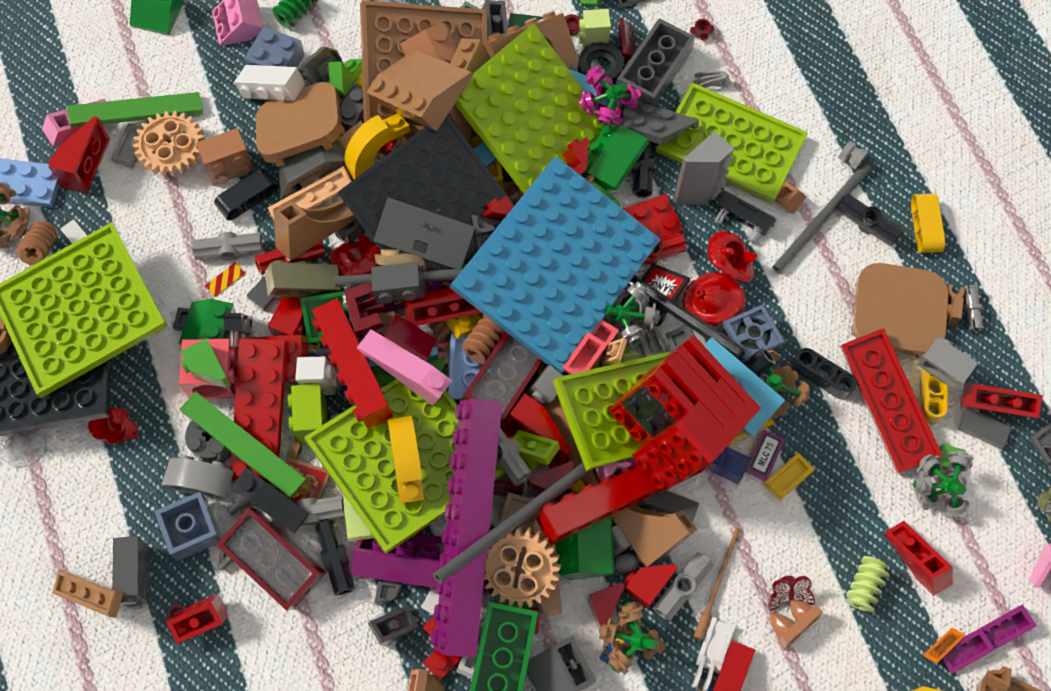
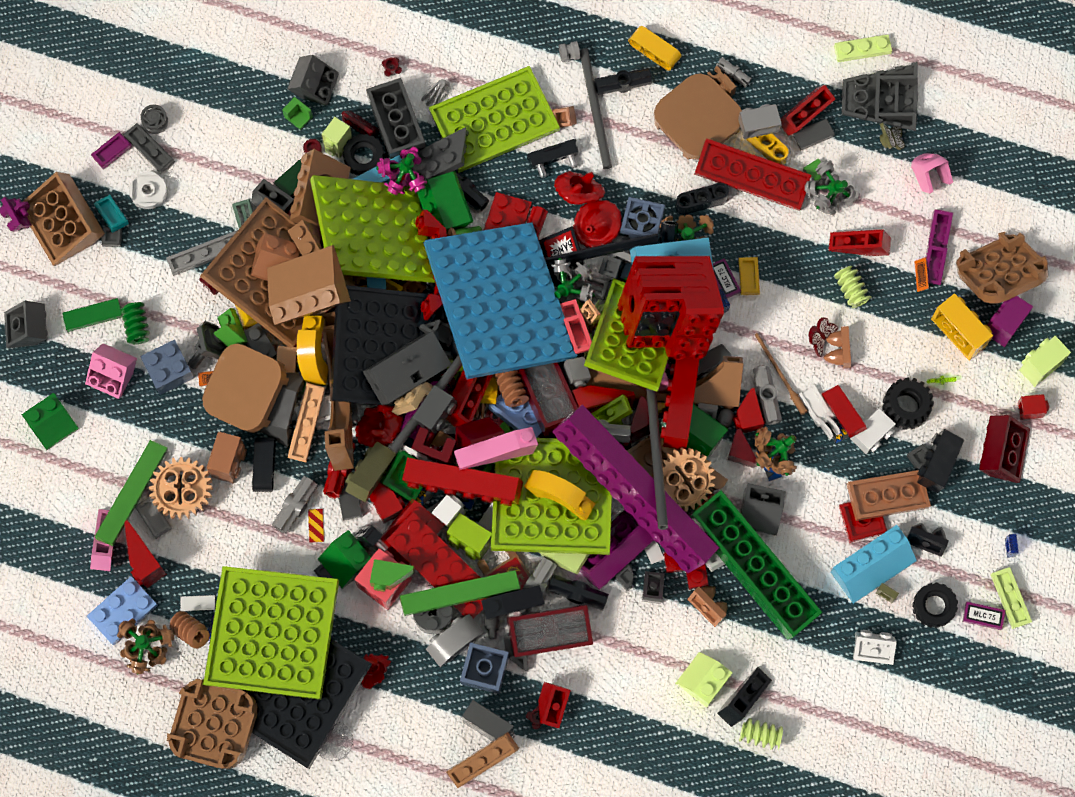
camera: 50 degrees left, 5 degrees up
(270, 82) = (191, 385): white brick -> none
(704, 172) = (512, 155): light grey slope -> none

